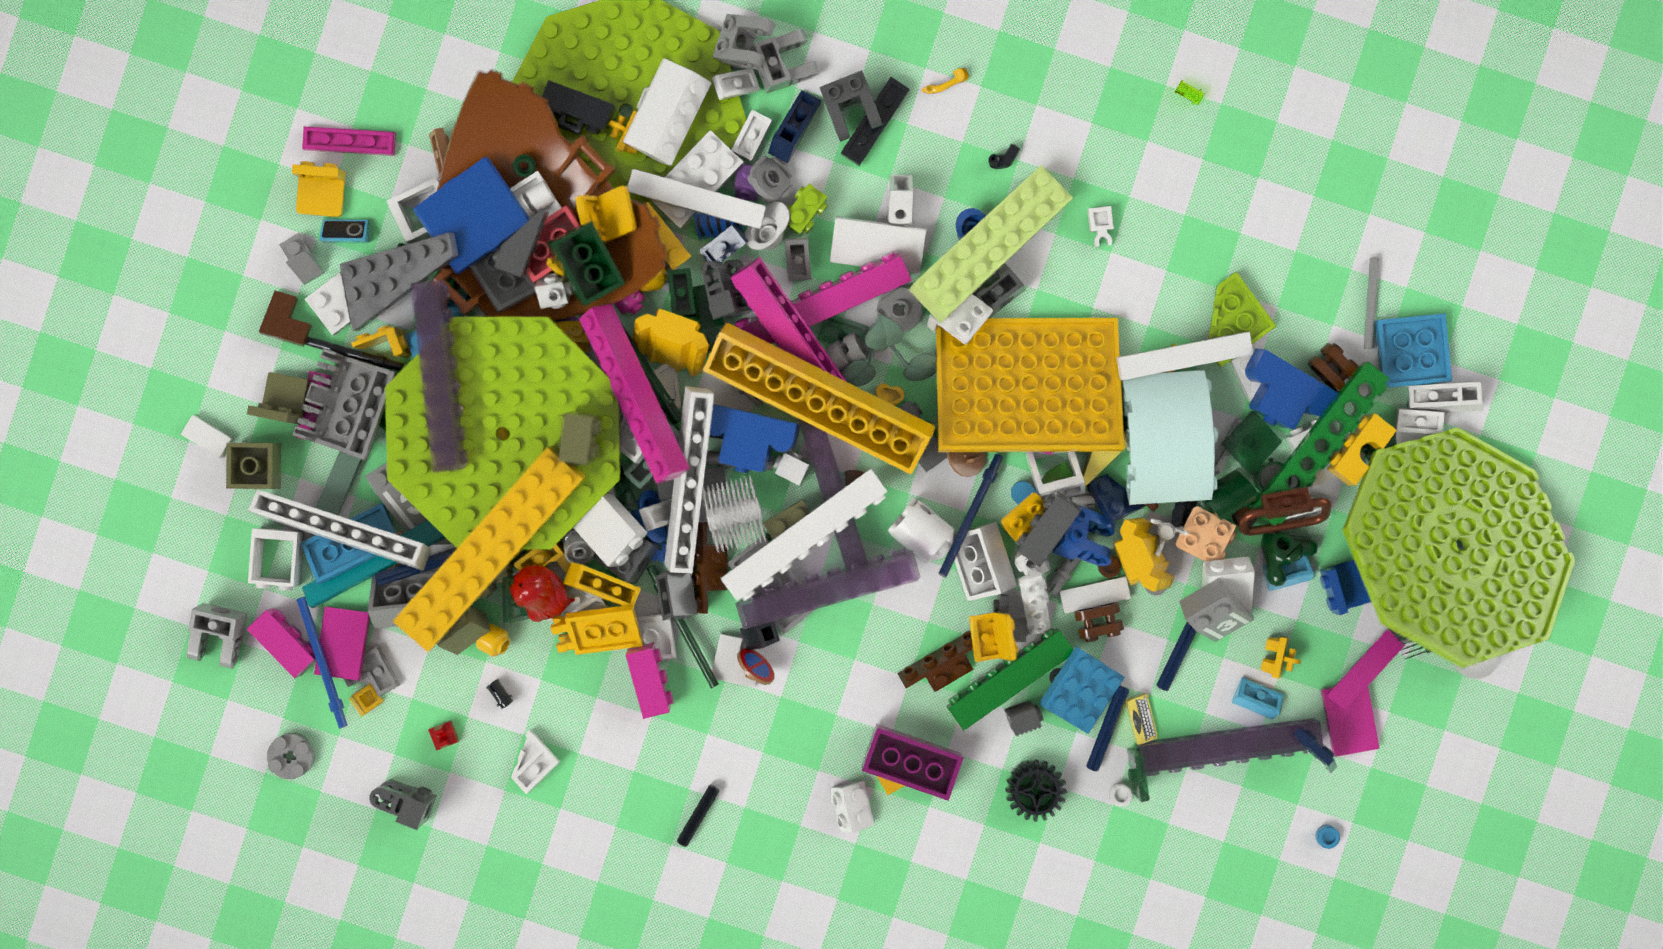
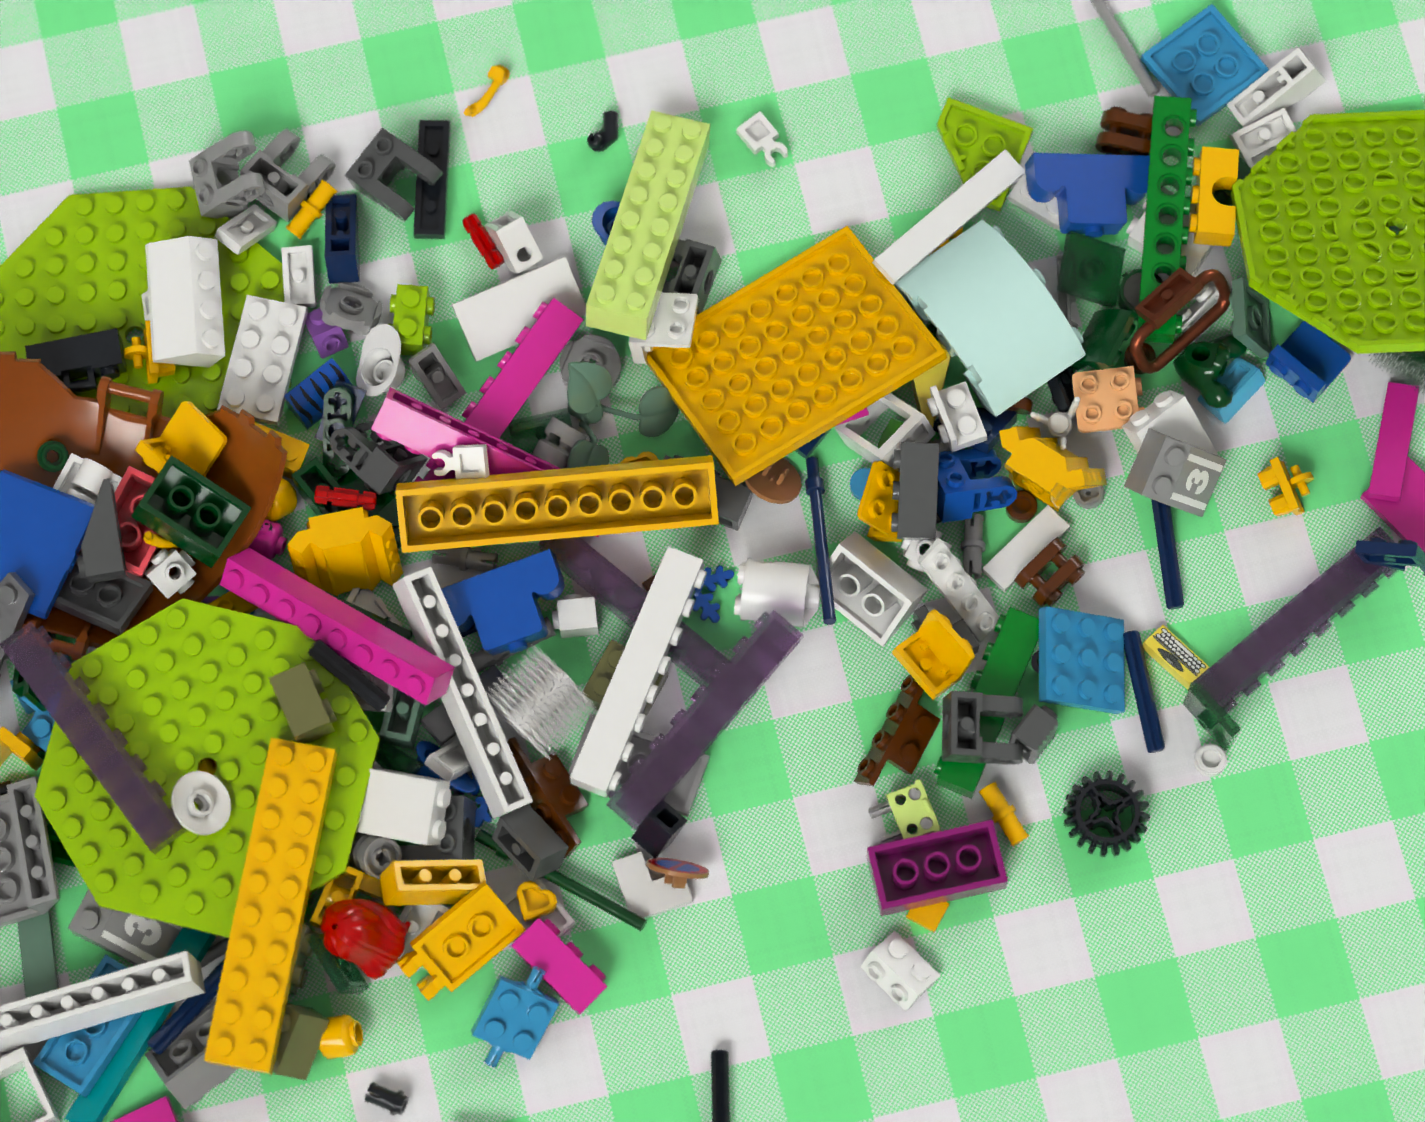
camera: 30 degrees left, 15 degrees down
(489, 465) = (209, 795): none -> white dish
(603, 695) = (514, 1017): none -> dark azure plate
(622, 430) = (349, 675): none -> black axle
(659, 631) = (535, 901): none -> yellow tile
(691, 308) = (345, 497): none -> red axle
(696, 199) = (279, 375): white tile -> none
(714, 246) = (330, 407): none -> dark green beam
(777, 335) = (467, 461): none -> white plate
(786, 94) = (311, 209): none -> yellow pin
(876, 512) = (702, 600): none -> blue animal
(882, 183) = (483, 241): none -> red axle
(920, 717) = (913, 813): none -> yellowish green piece
(974, 751) = (1003, 814): none -> yellow pin
(981, 692) = (962, 728): none -> dark grey brick
(1105, 491) = (957, 415): none -> white bracket
(1258, 698) = (1295, 551): medium azure slope -> none
(1331, 538) = (1251, 318): none -> sand green plate

